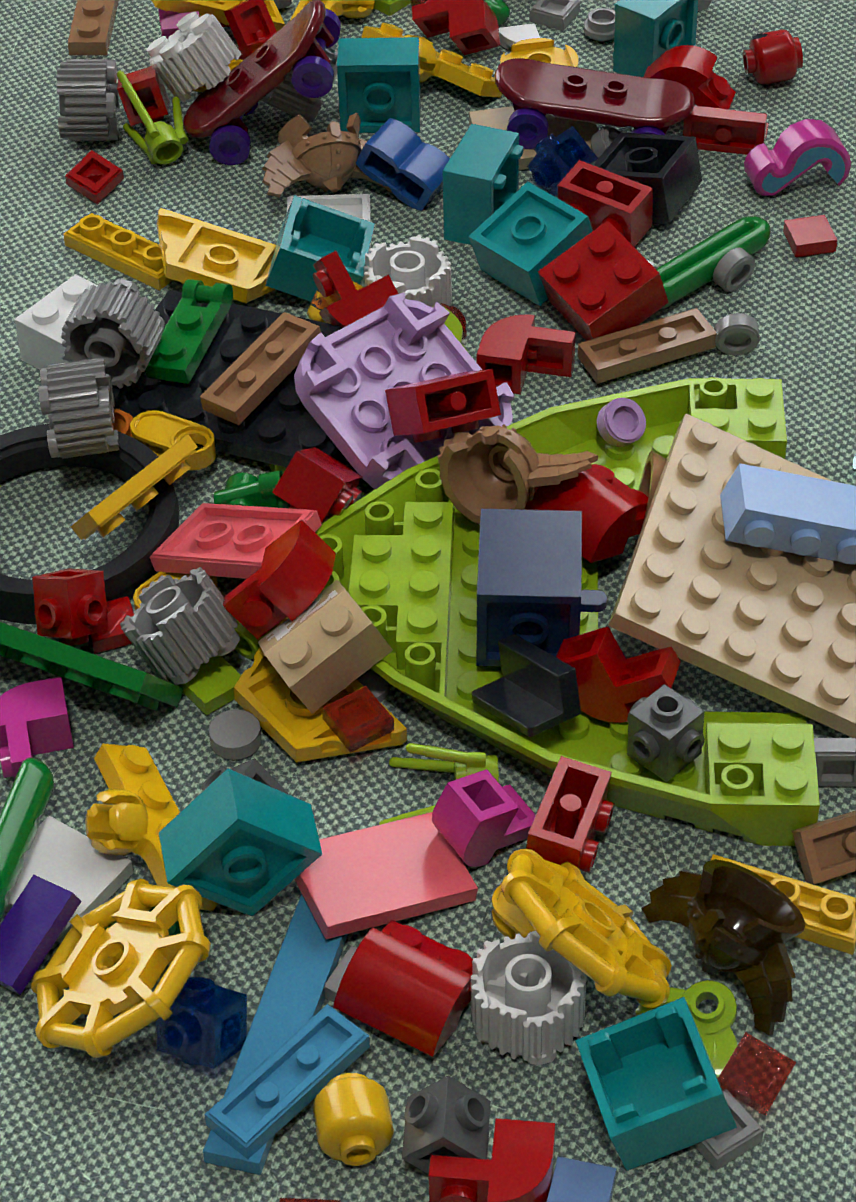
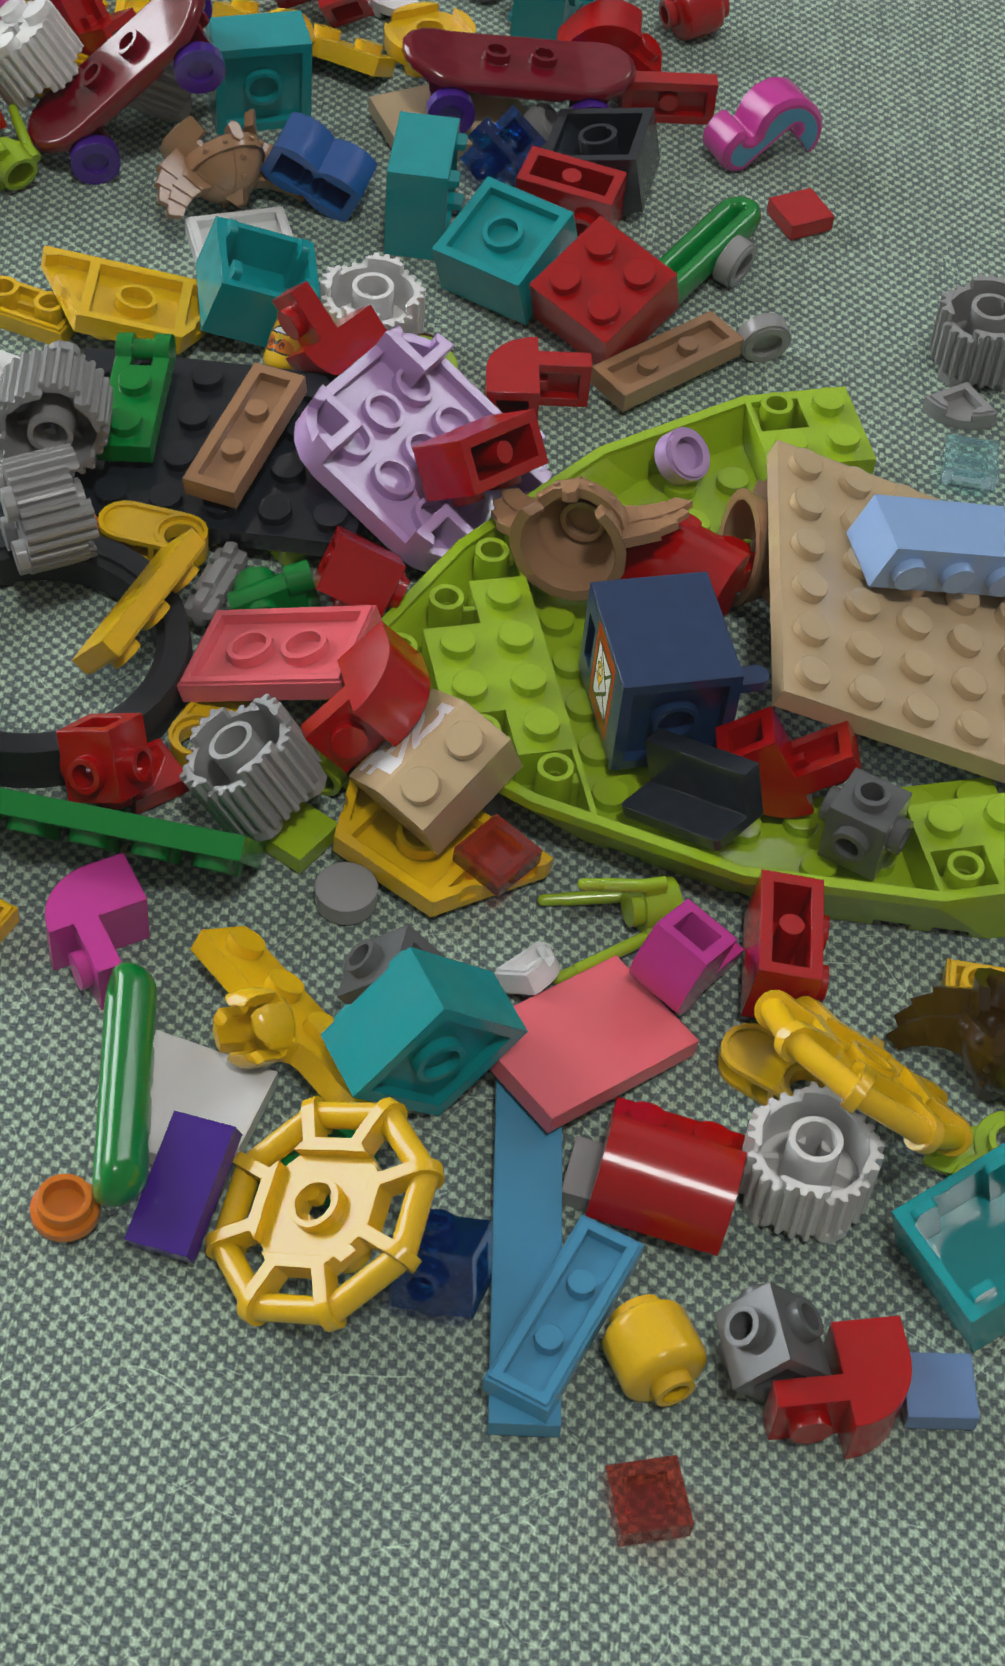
camera: 20 degrees left, 5 degrees up
(212, 480) = (215, 583): none -> light grey axle
(358, 812) = (529, 970): none -> white tile

